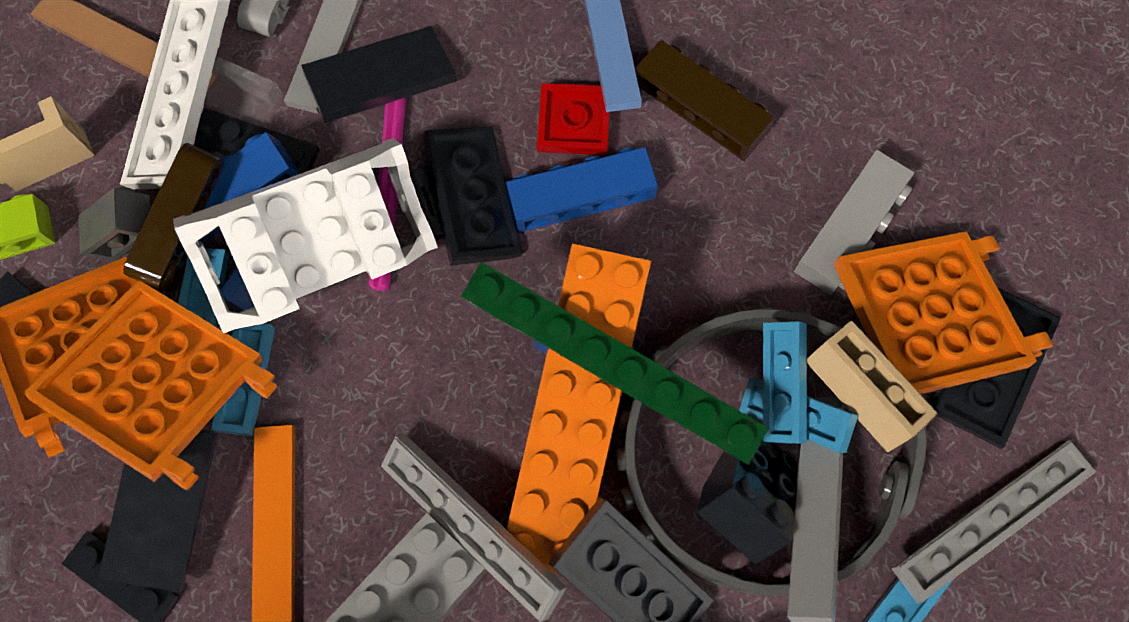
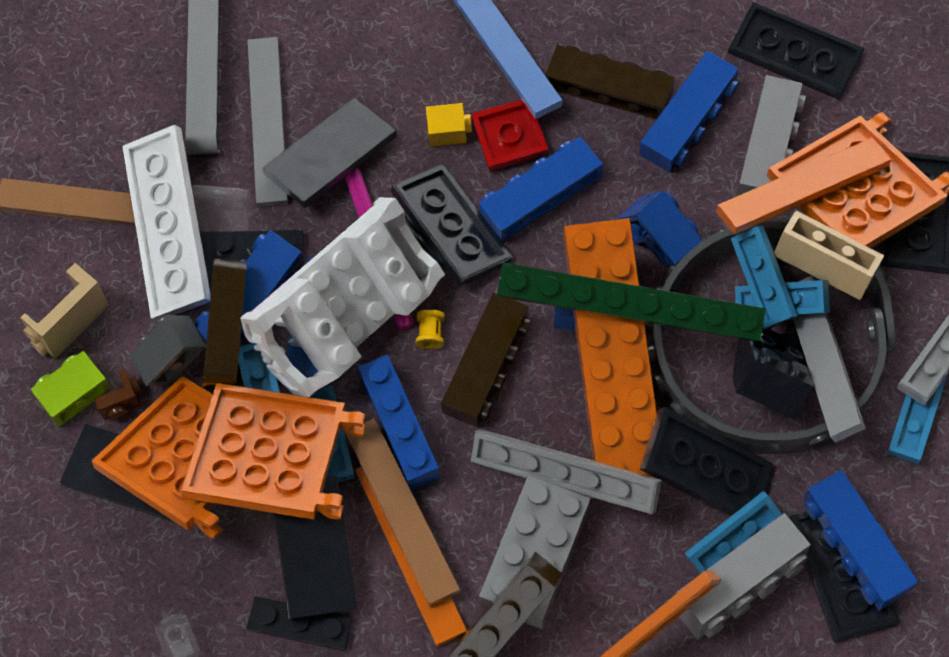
camera: 20 degrees left, 5 degrees down
(47, 261) = (117, 403): none -> reddish brown bracket
(279, 503) = (403, 514): none -> medium nougat tile
(319, 395) = (399, 422): none -> blue brick
(400, 301) = (430, 329): none -> yellow bush
(439, 362) = (485, 360): none -> dark brown brick
(512, 86) = (447, 124): none -> yellow brick
(692, 279) = (662, 227): none -> blue brick
(776, 161) = (689, 111): none -> blue brick
(870, 292) = (803, 185): none -> orange tile
(921, 135) = (796, 50): none -> black tile

